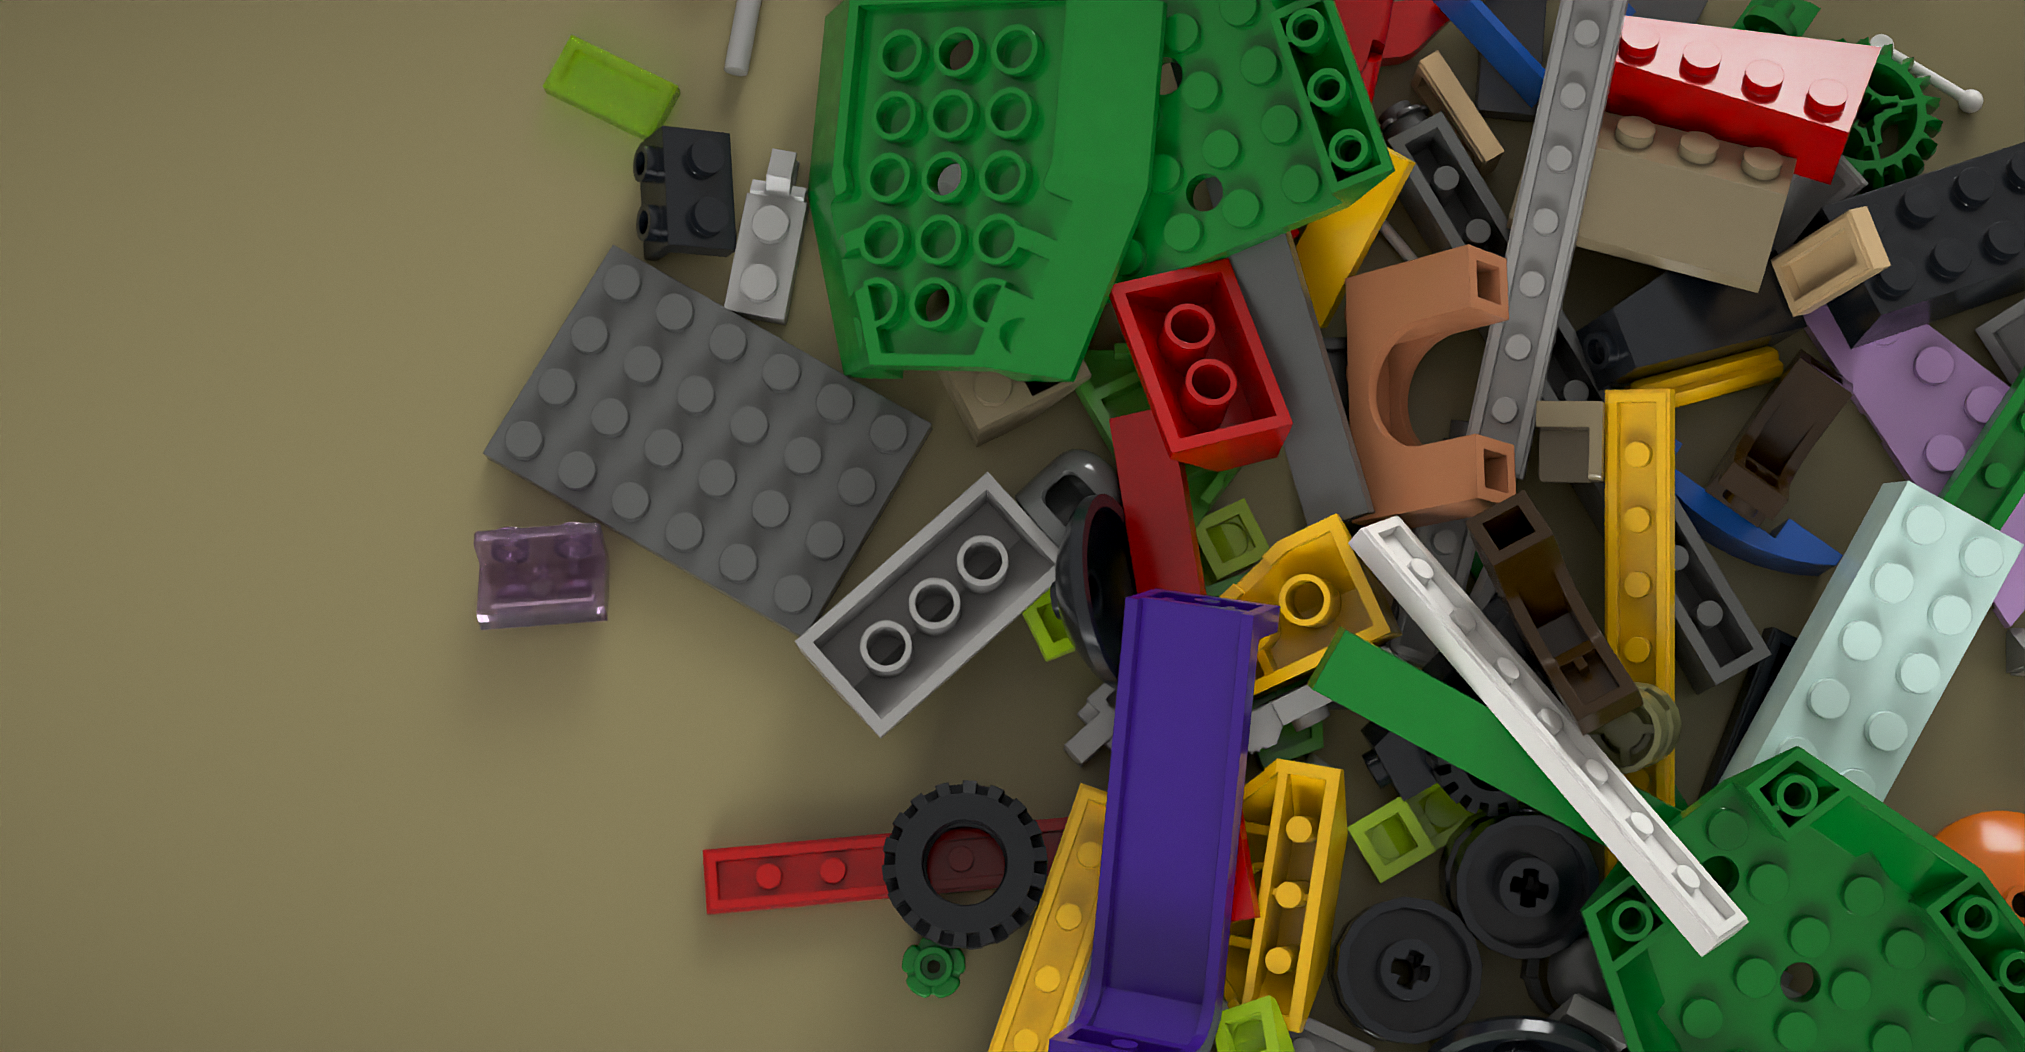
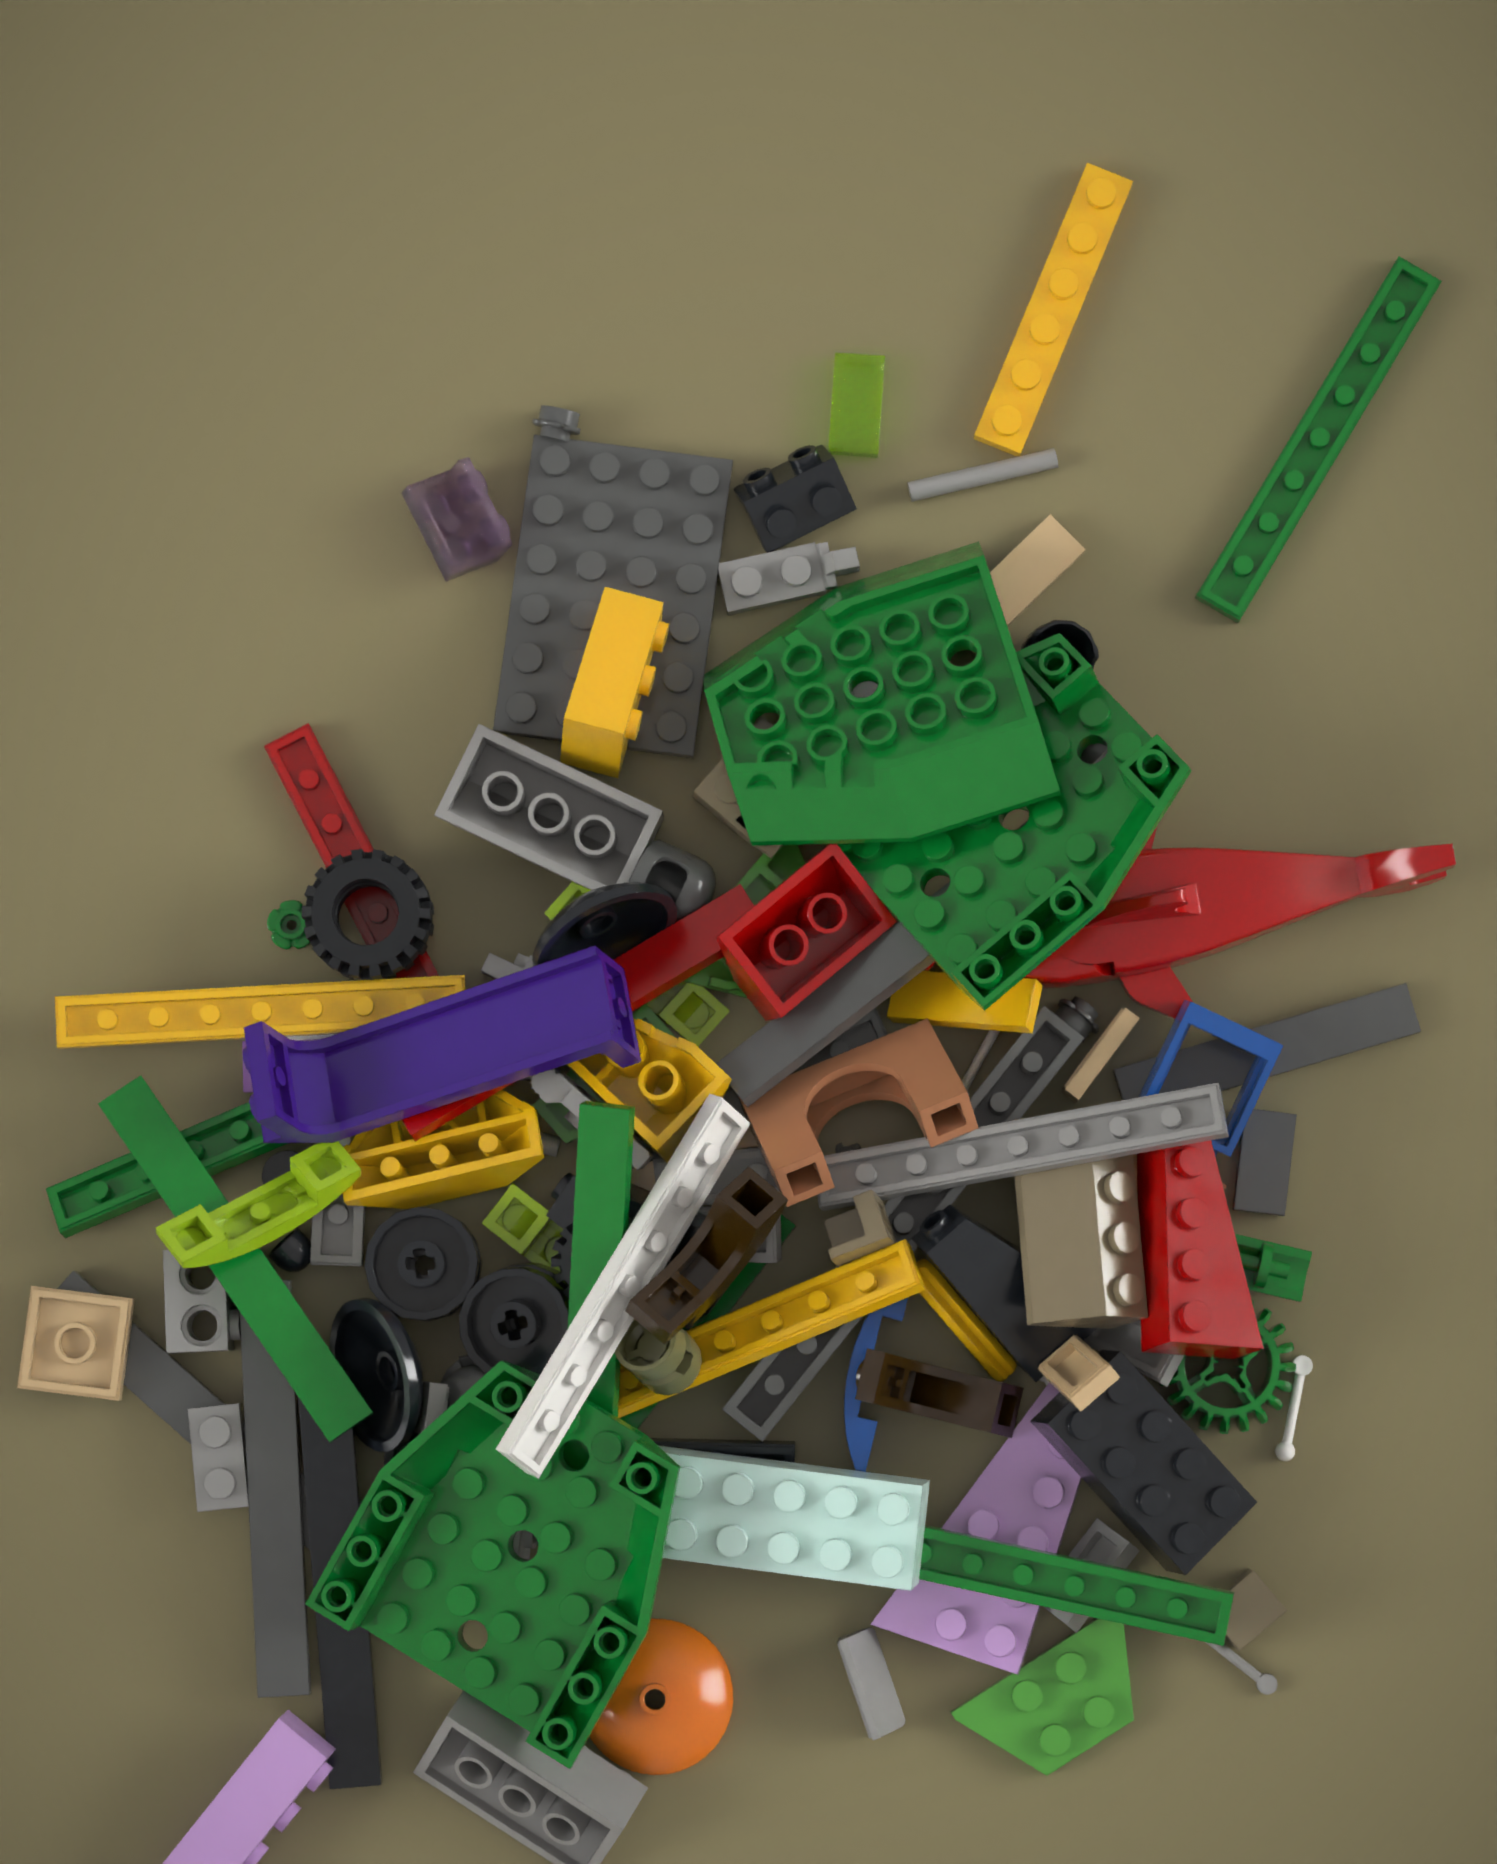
camera: 70 degrees right, 5 degrees up
(480, 420) = (557, 422): none -> dark grey plate
(813, 467) = (611, 682): none -> yellow wedge

